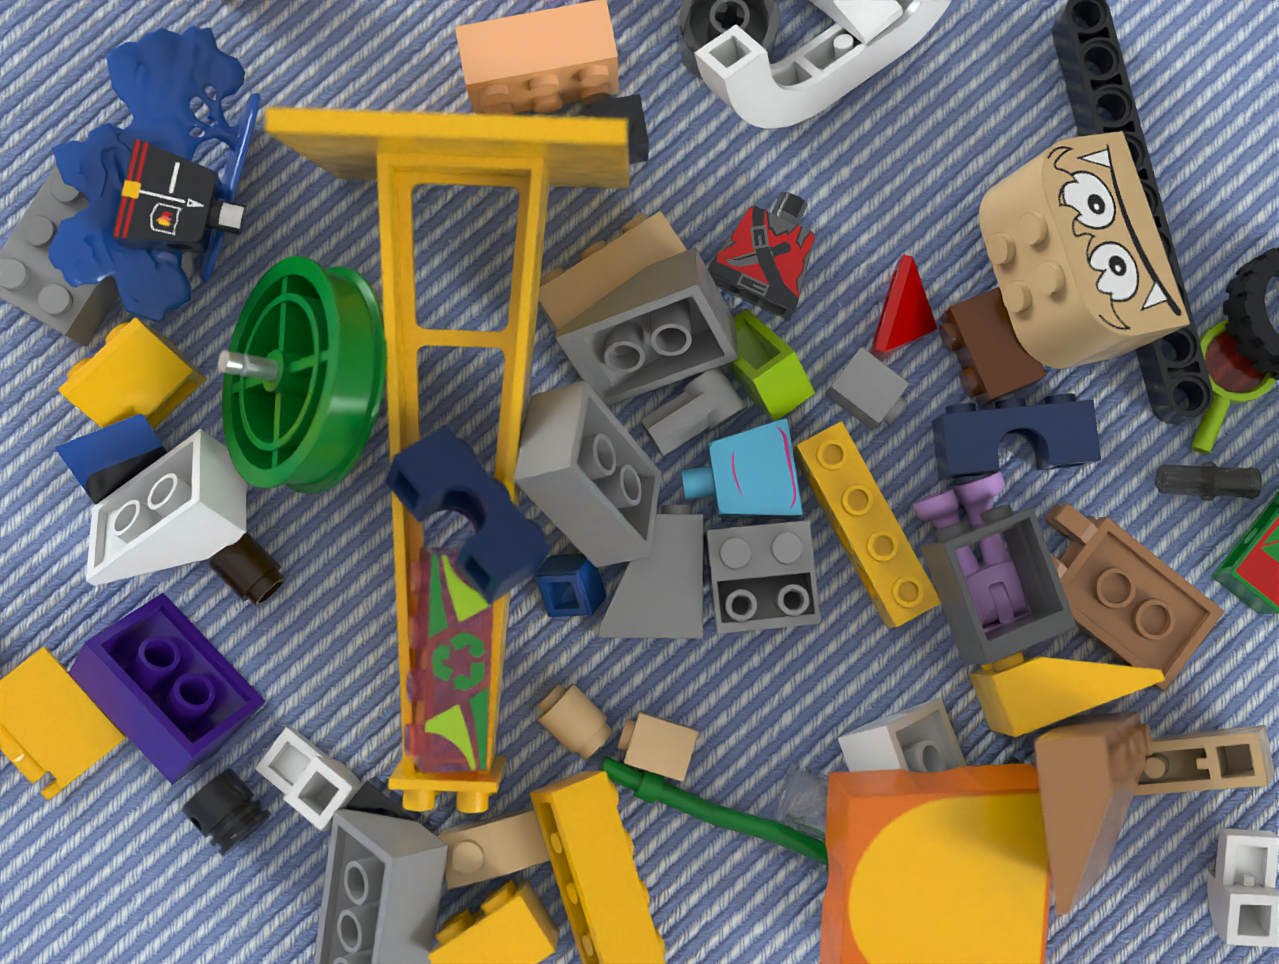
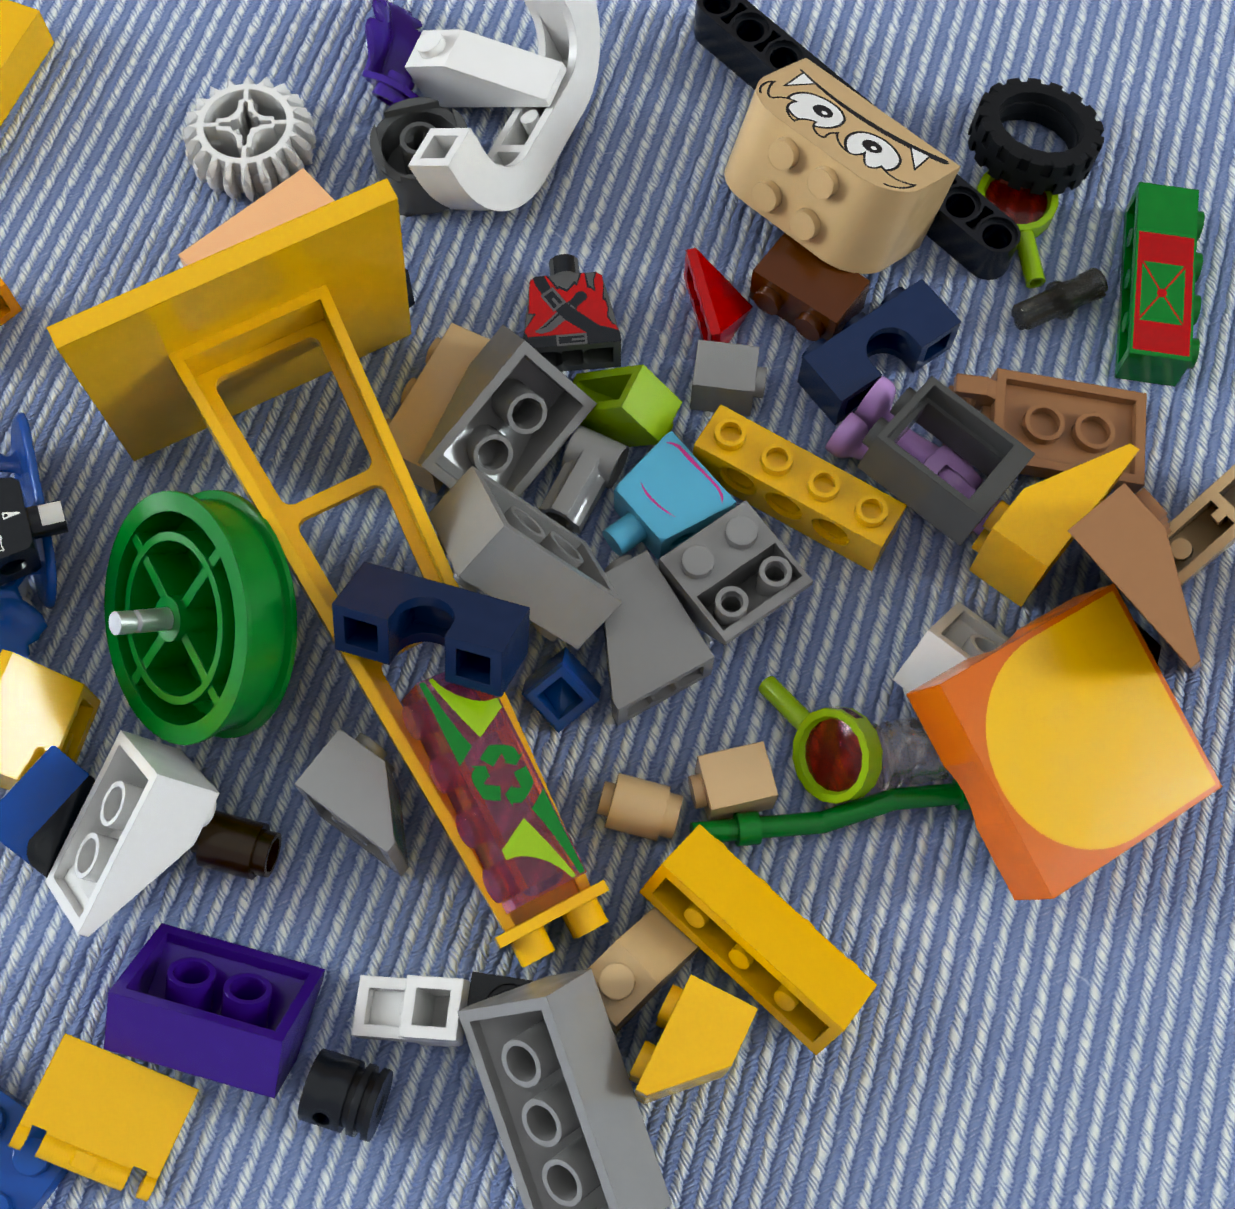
camera: 30 degrees left, 15 degrees down
(355, 595) = (357, 795): none -> light grey slope
(752, 764) = (833, 748): none -> piece

